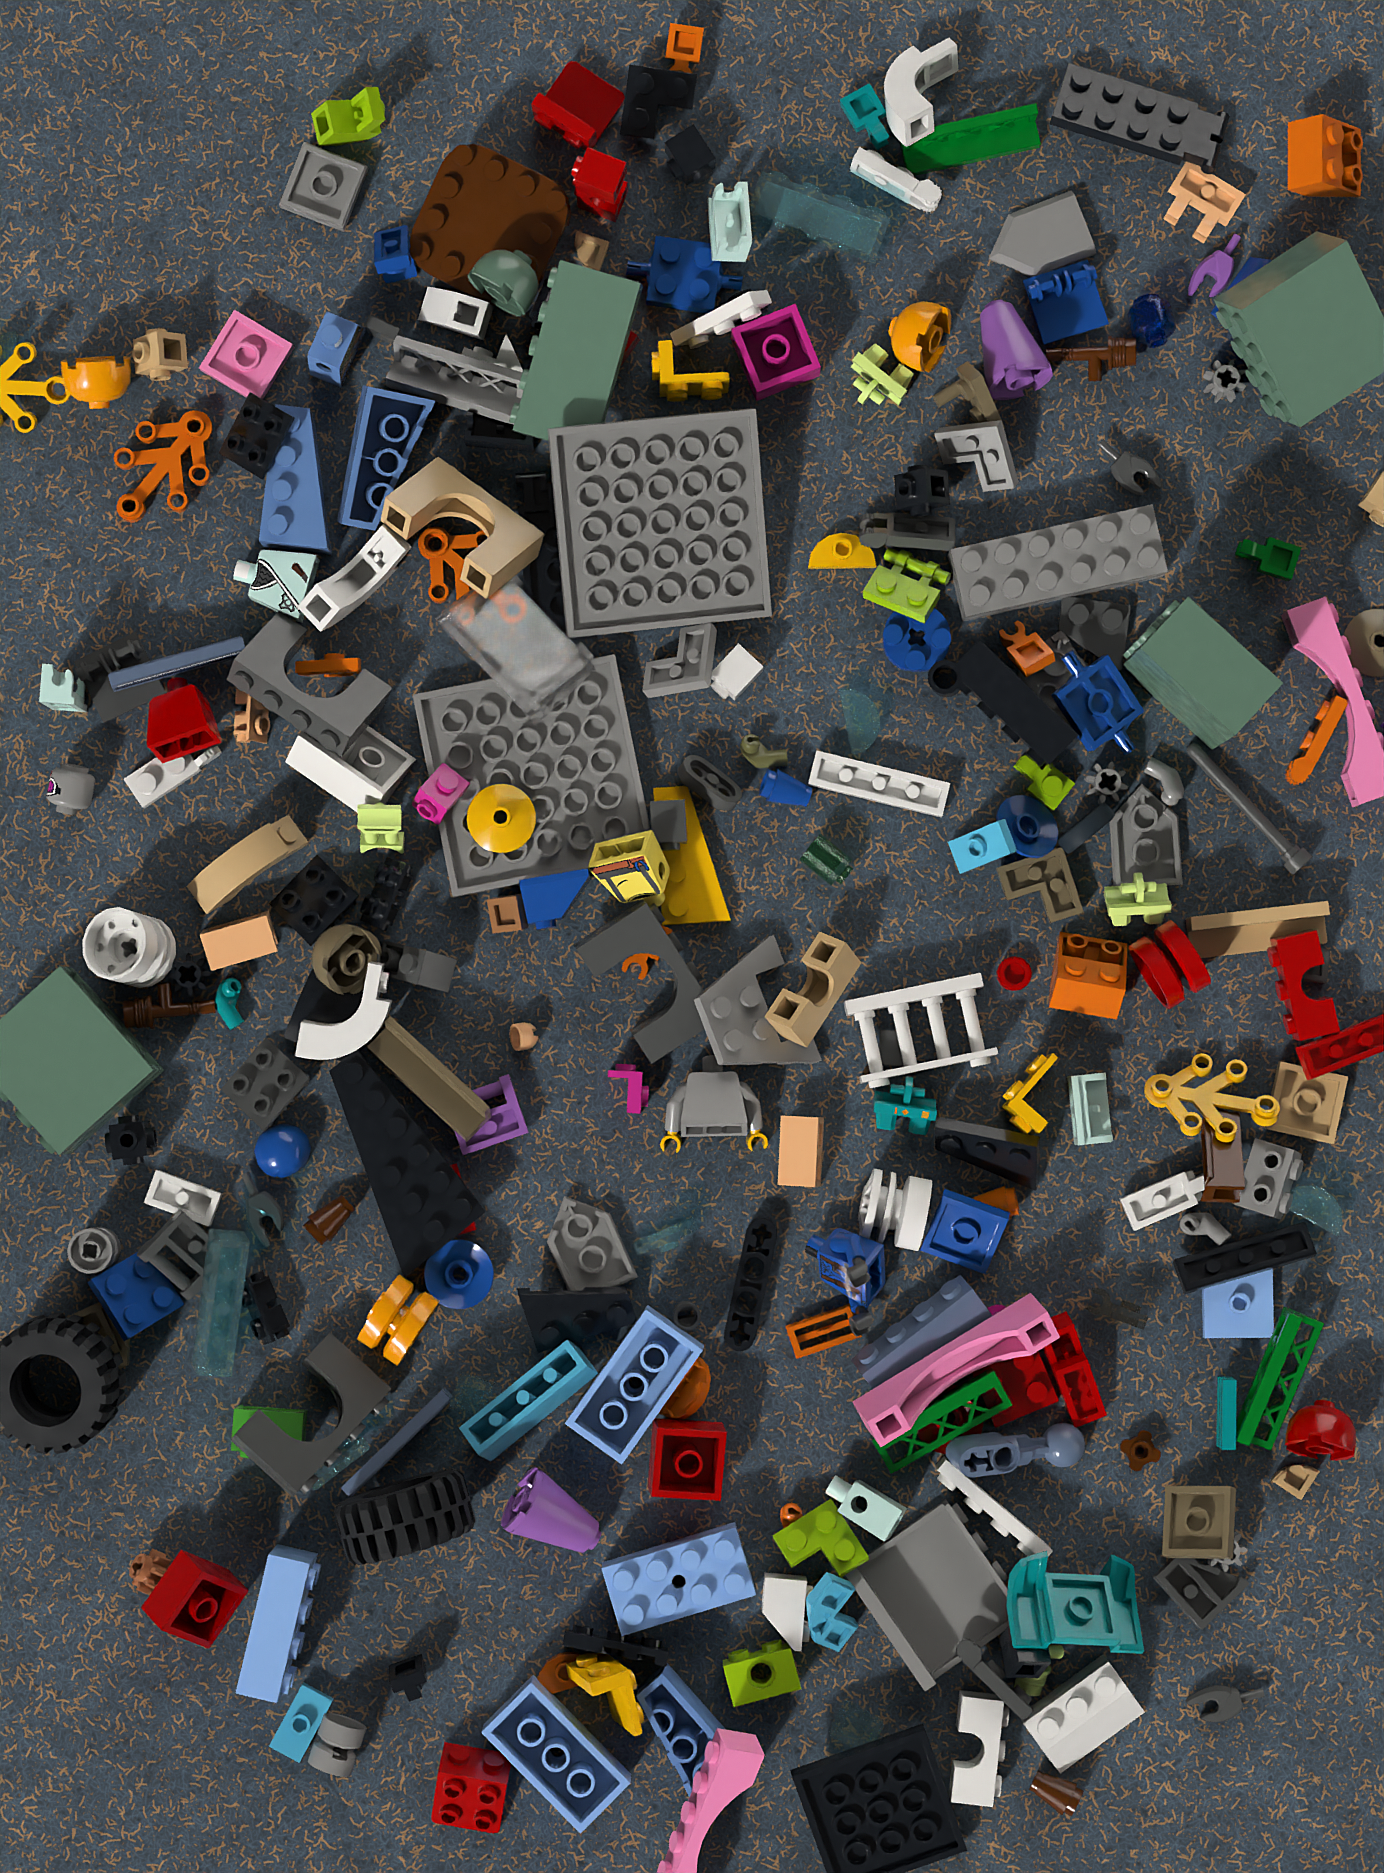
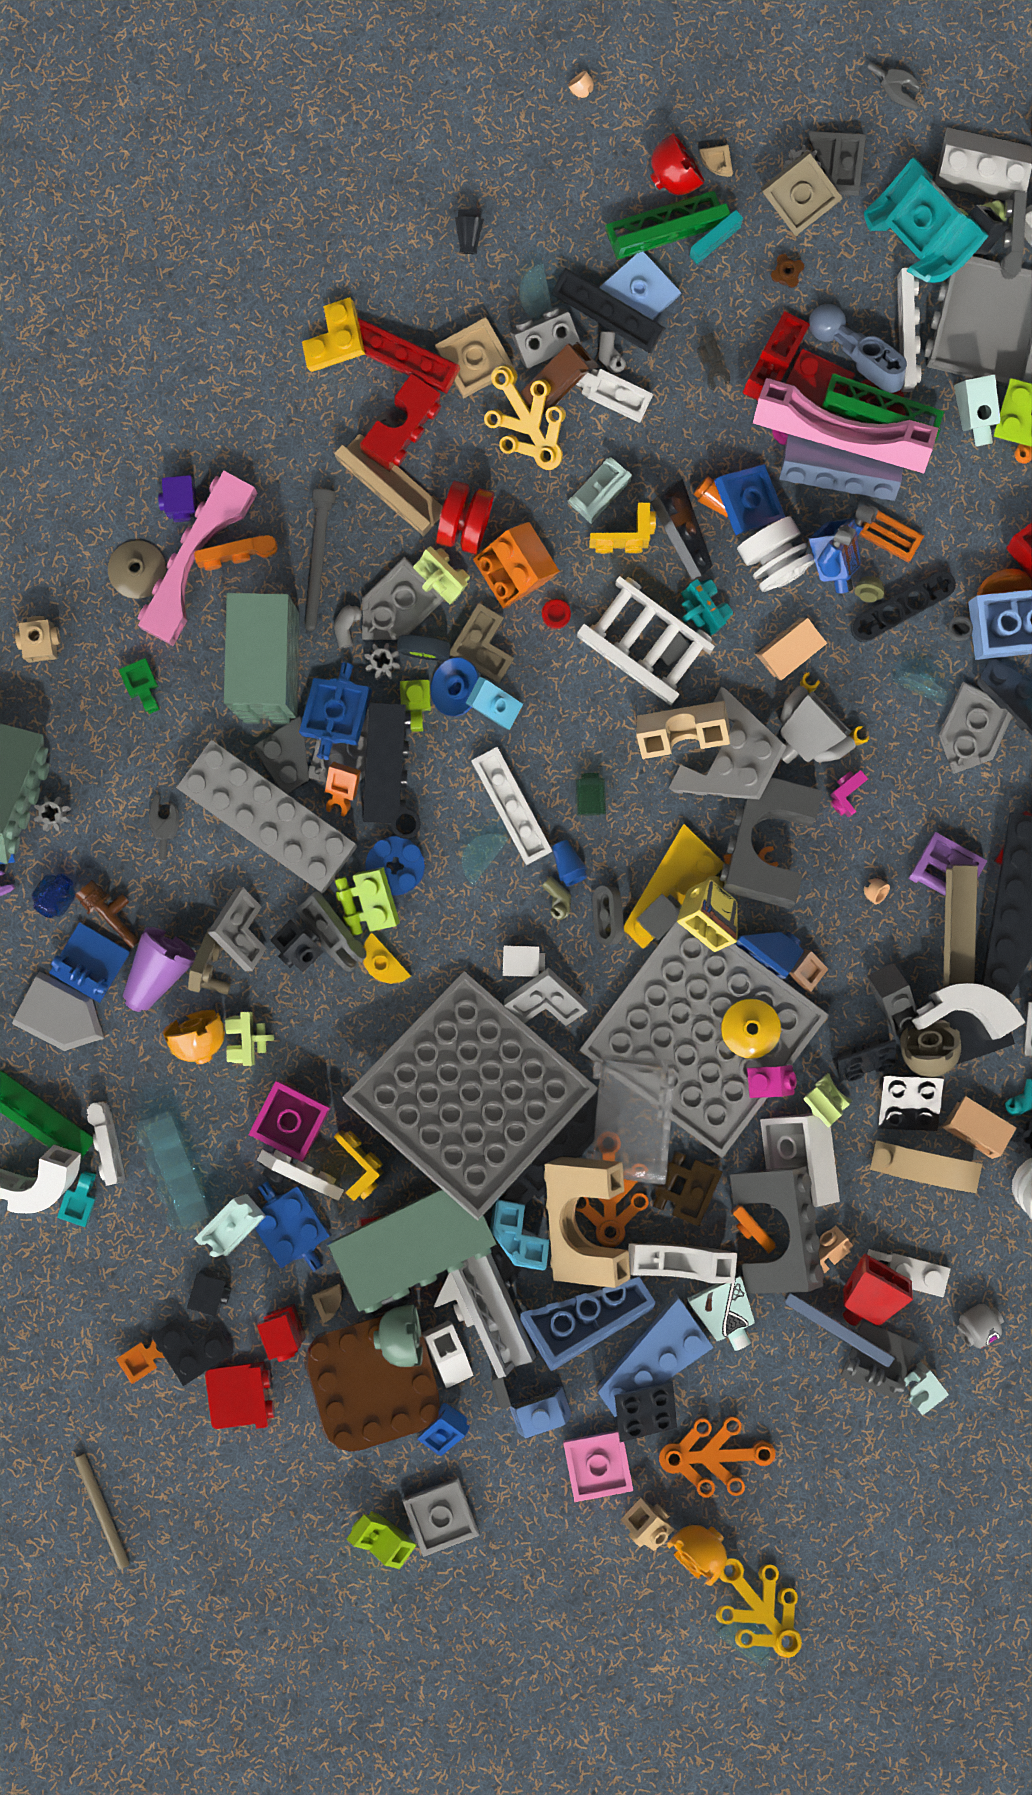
camera: 125 degrees left, 0 degrees up
(402, 645) = (695, 1193): none -> dark brown plate
(516, 453) = (507, 1230): none -> medium azure tile
(791, 1267) = (869, 589): none -> olive plate

